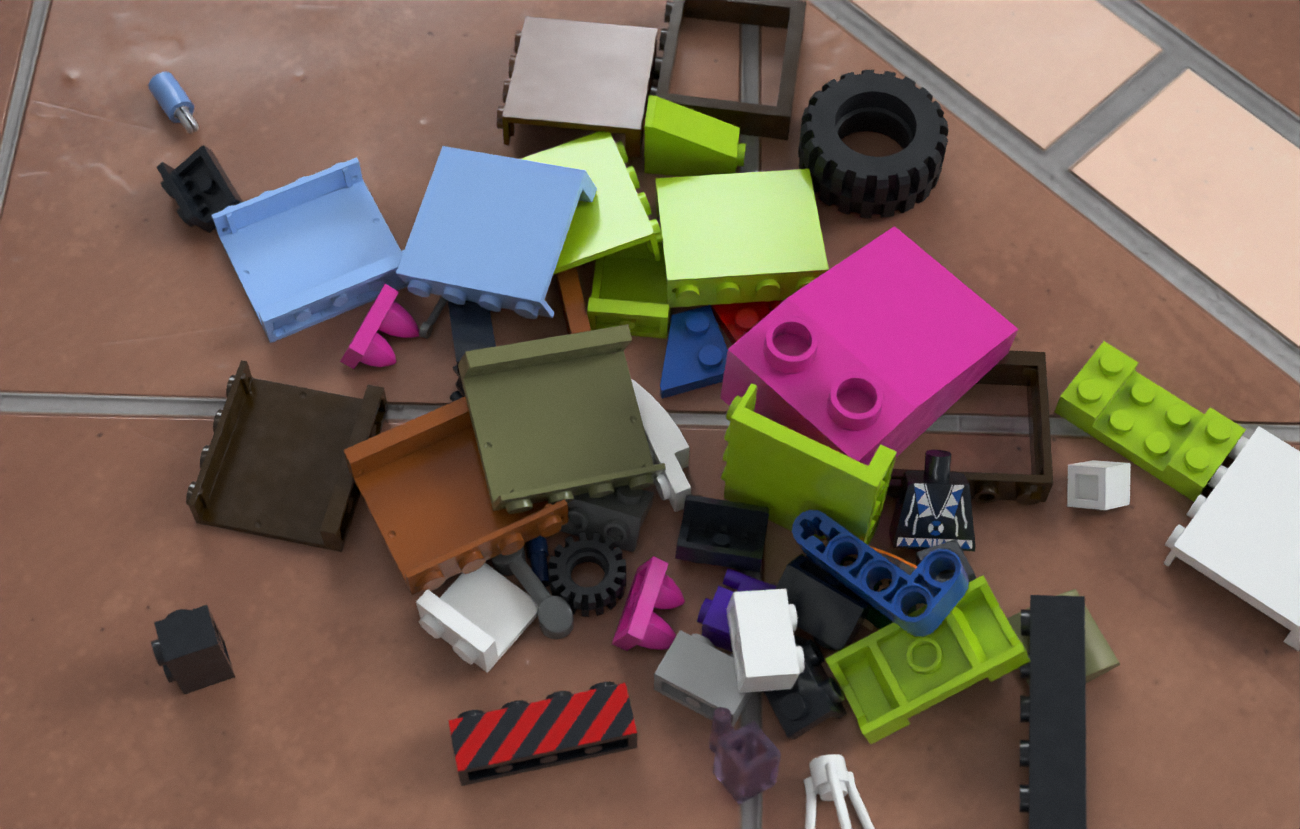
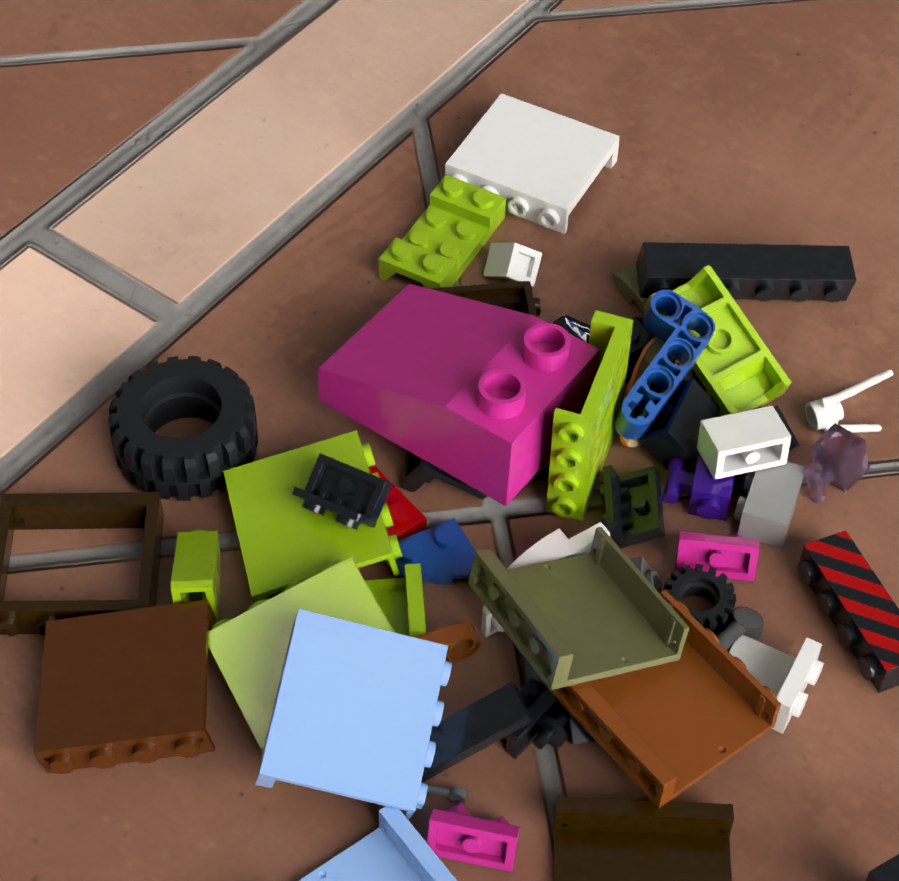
camera: 100 degrees left, 10 degrees down
(734, 237) = (344, 490): none -> black bracket

